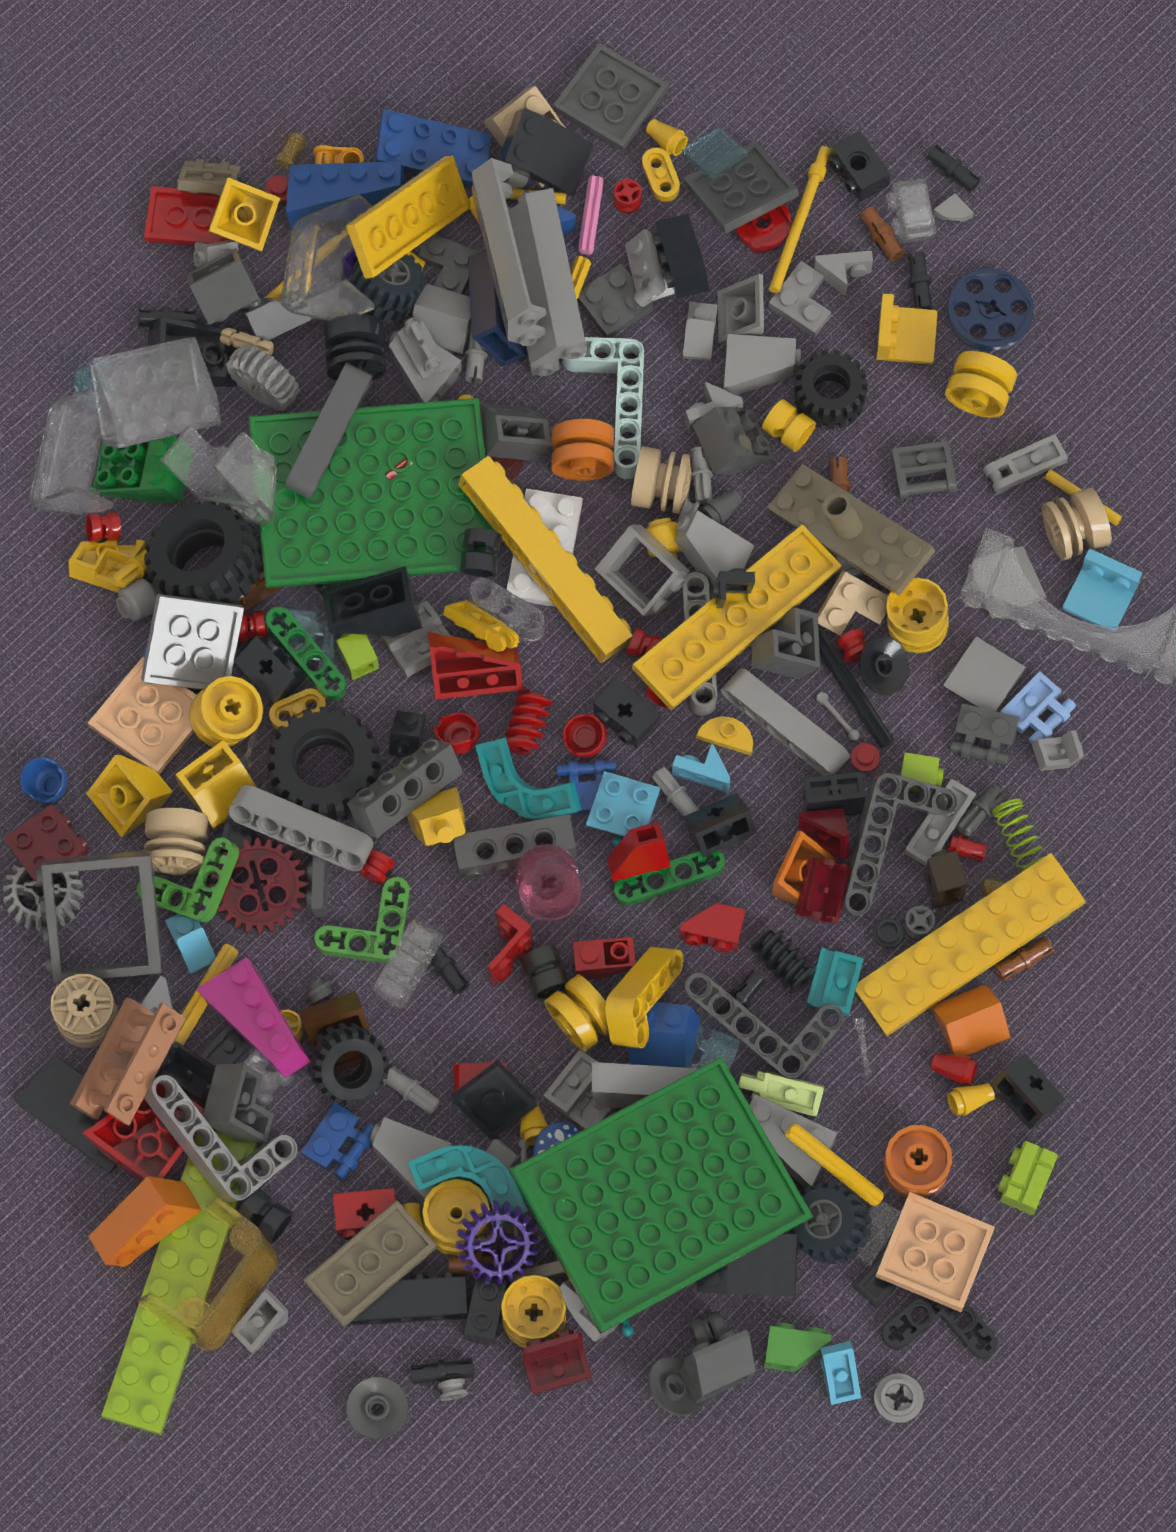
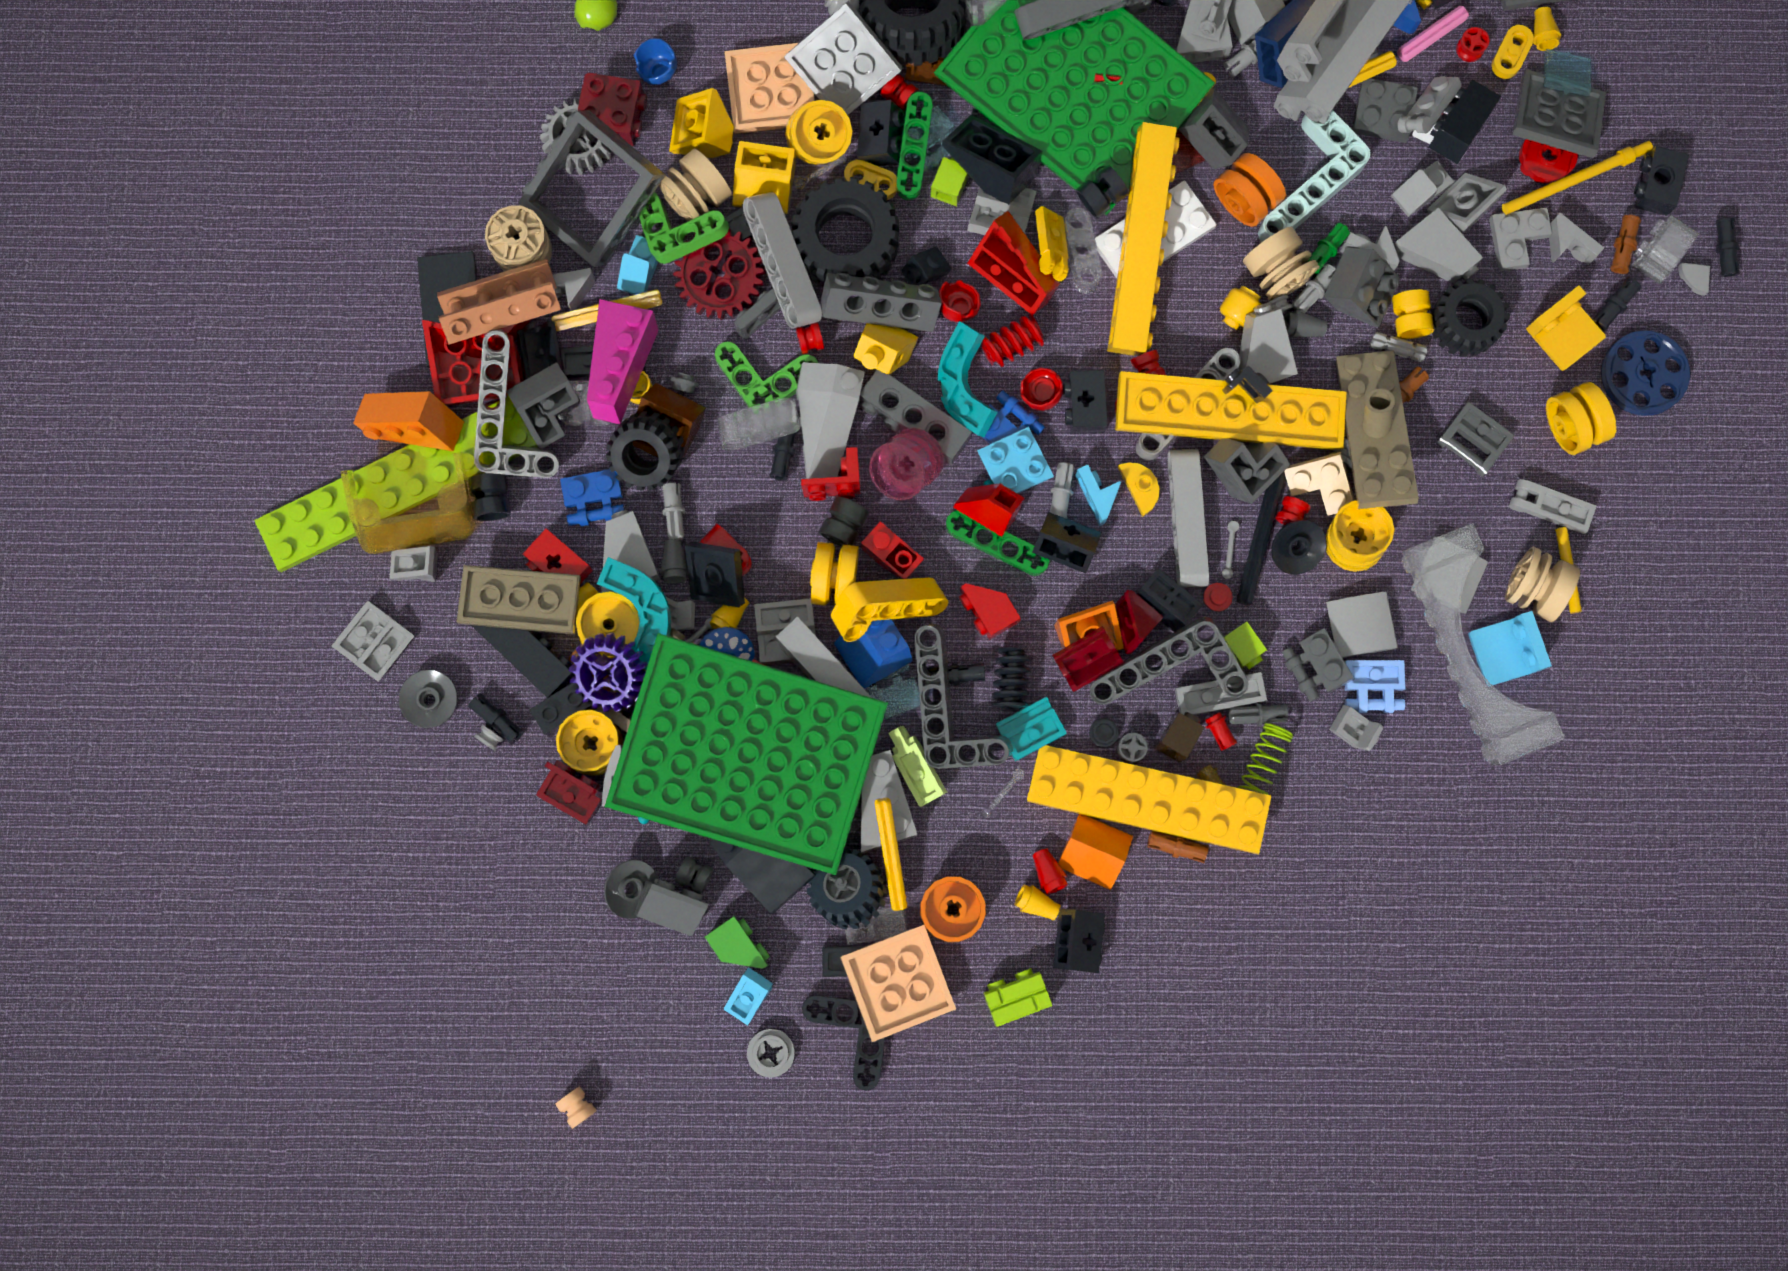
camera: 45 degrees right, 10 degrees up
(287, 1411) = (373, 640): none -> light grey slope
(446, 901) = (827, 410): none -> light grey wedge
(452, 1126) = (674, 563): none -> dark grey cone
(620, 552) = (1196, 287): light grey window -> none
(678, 435) = (1328, 246): none -> green axle
(804, 456) = (1400, 346): none -> light grey axle

